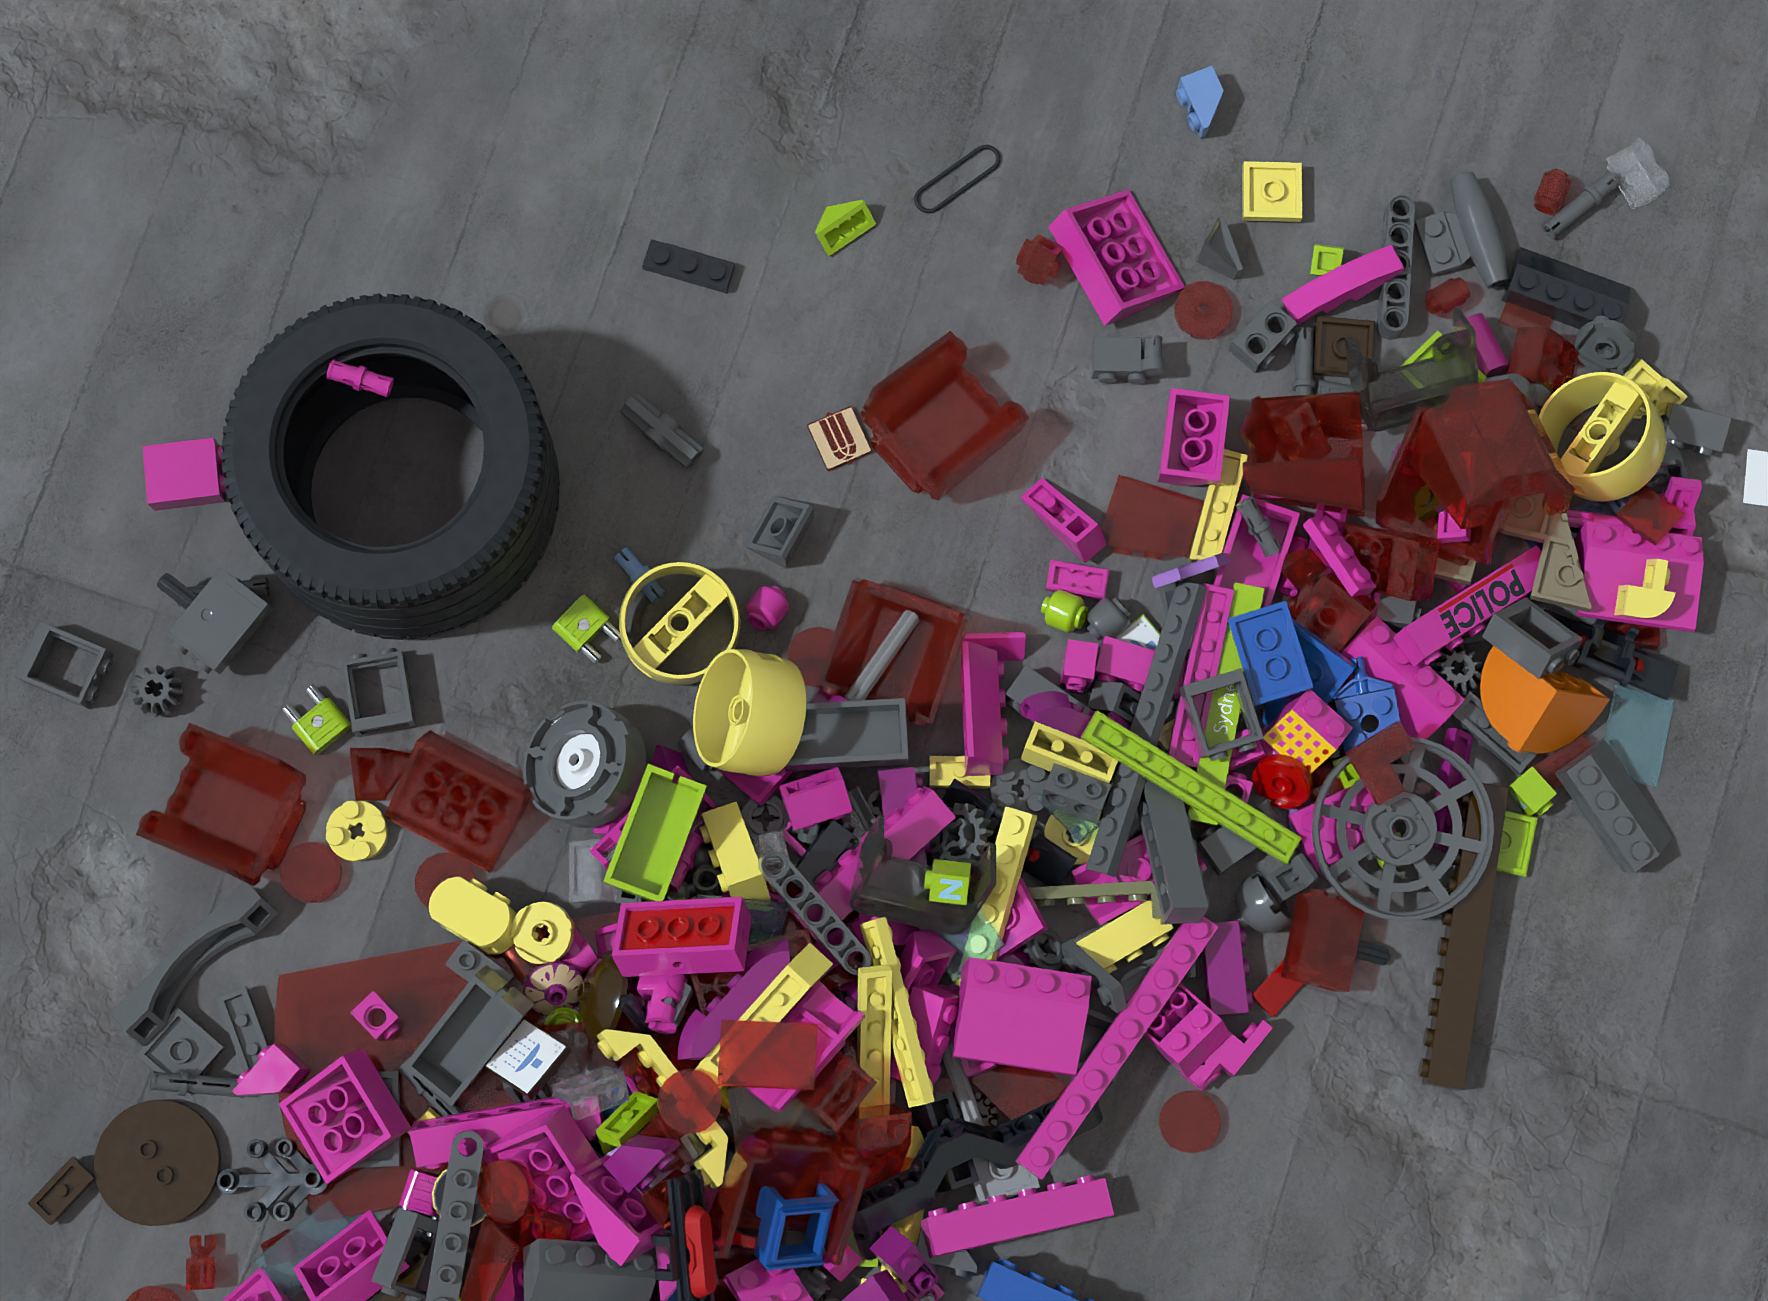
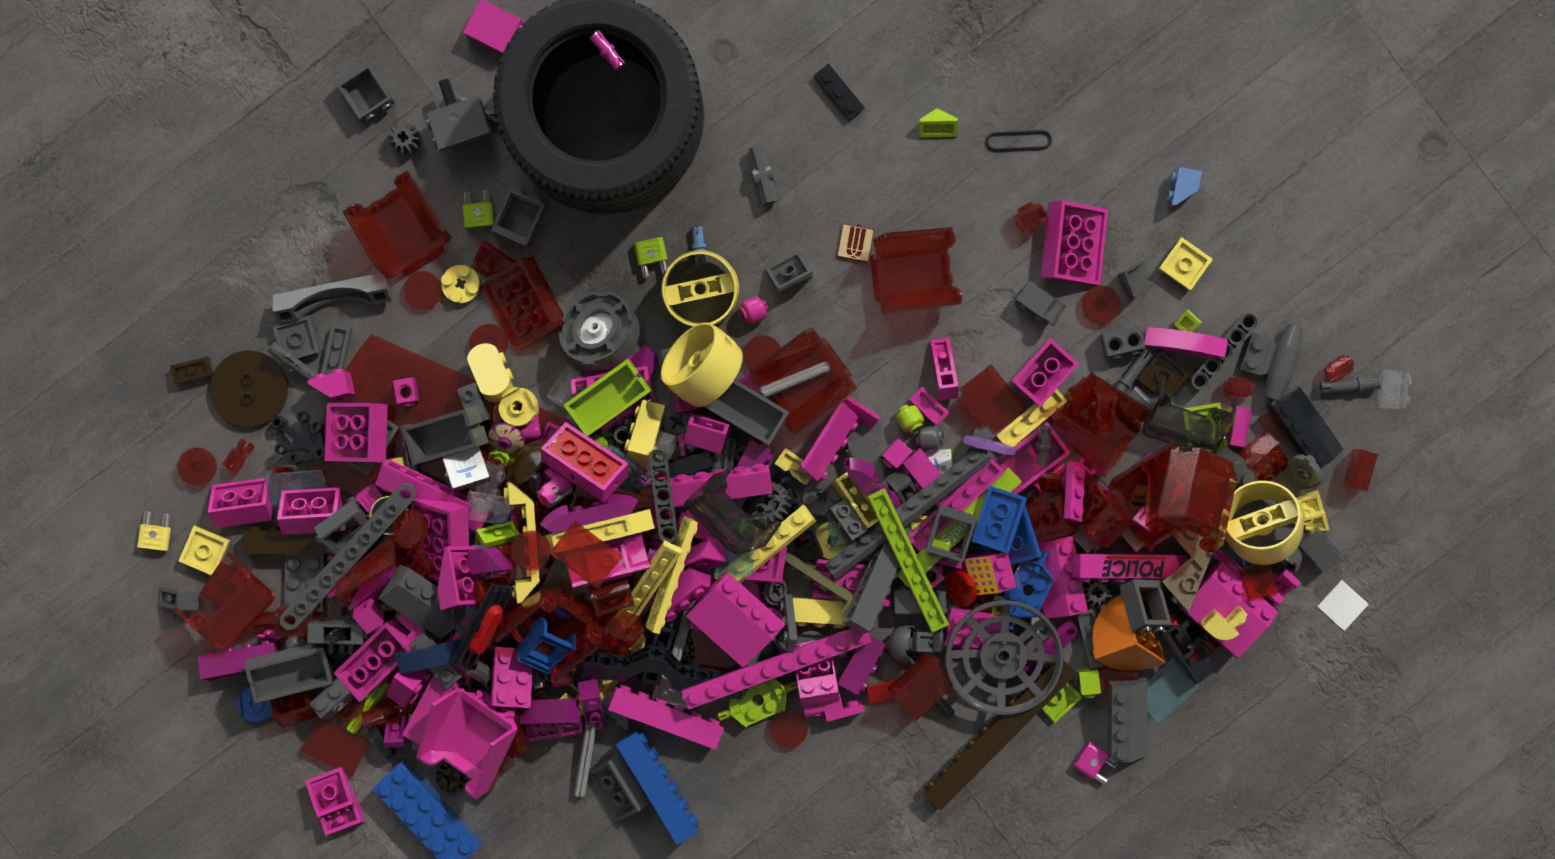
camera: 40 degrees right, 10 degrees up
(948, 881) = (744, 525): lime brick -> none
(1145, 1098) = (774, 702): none -> lime plate
(1373, 760) = (1012, 613): clear red plate -> none
(1608, 892) = (1091, 761): none -> dark pink piece
(1670, 297) = (1360, 469): none -> clear red brick

